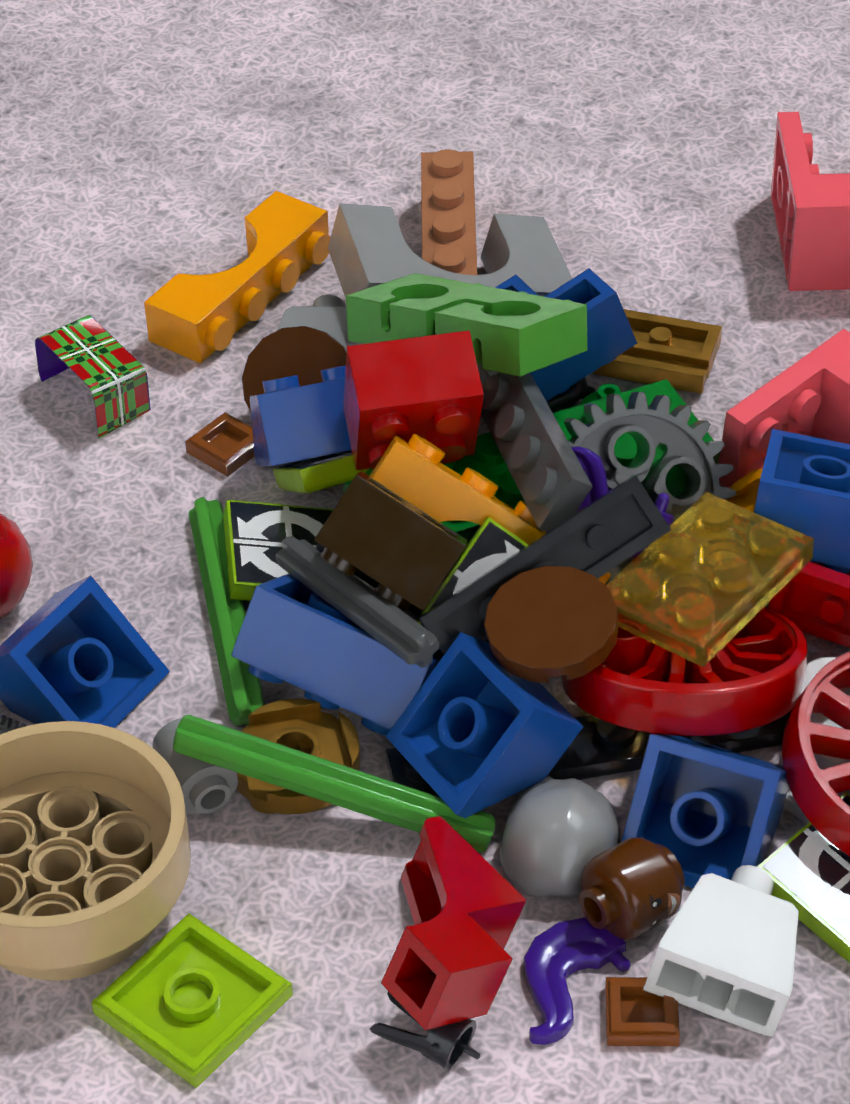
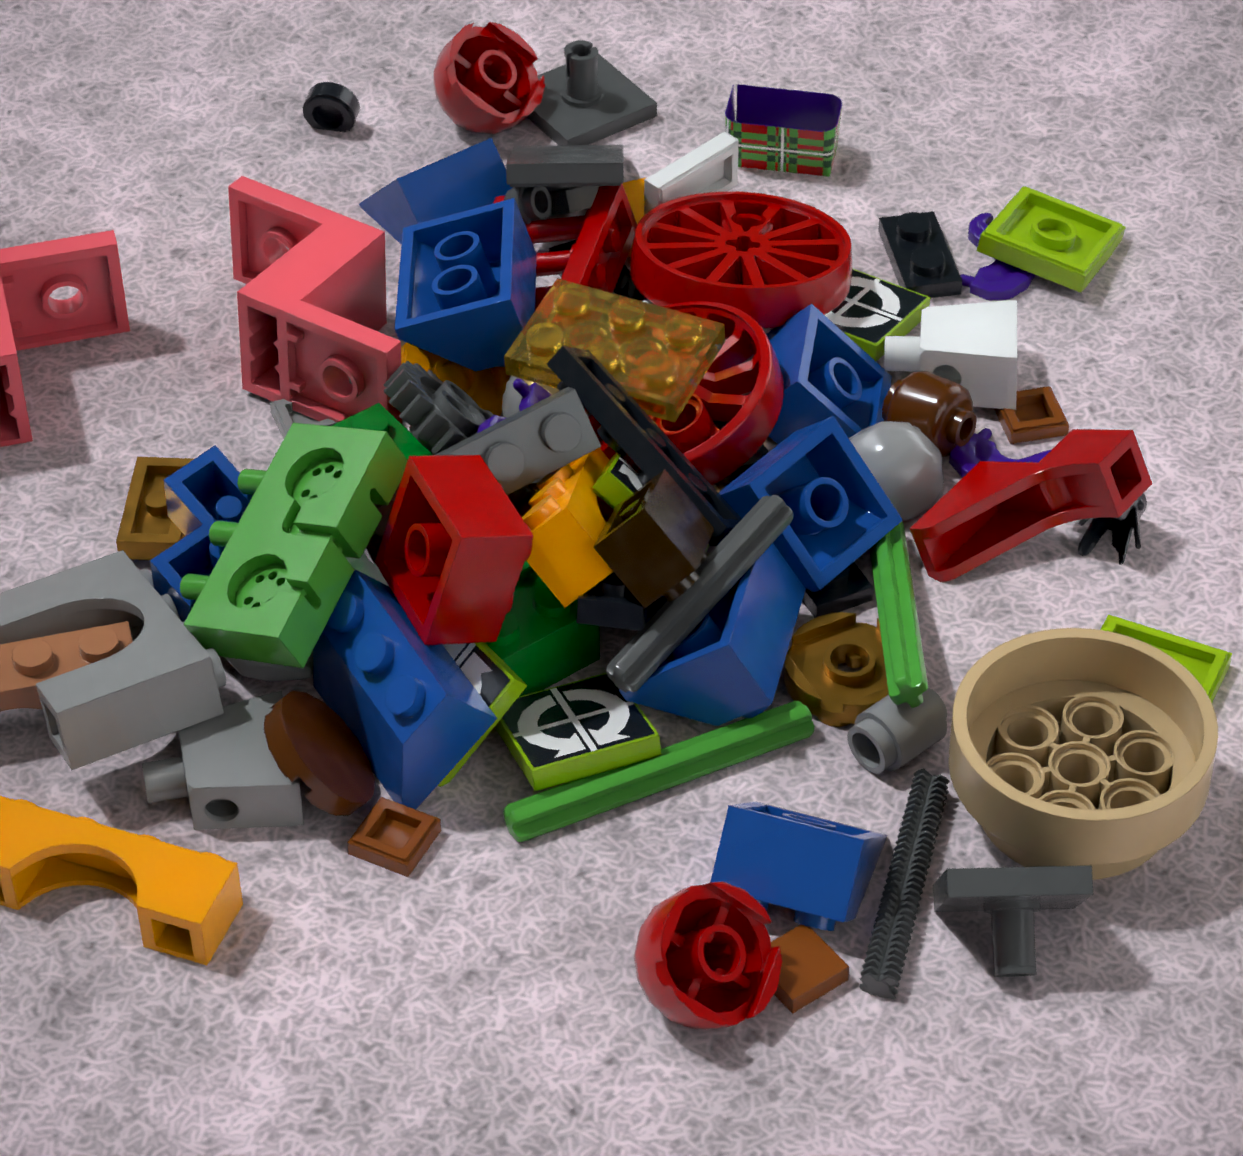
camera: 105 degrees left, 0 degrees up
(103, 364) = (308, 952): piece -> none
(551, 624) = (726, 418): reddish brown tile -> none

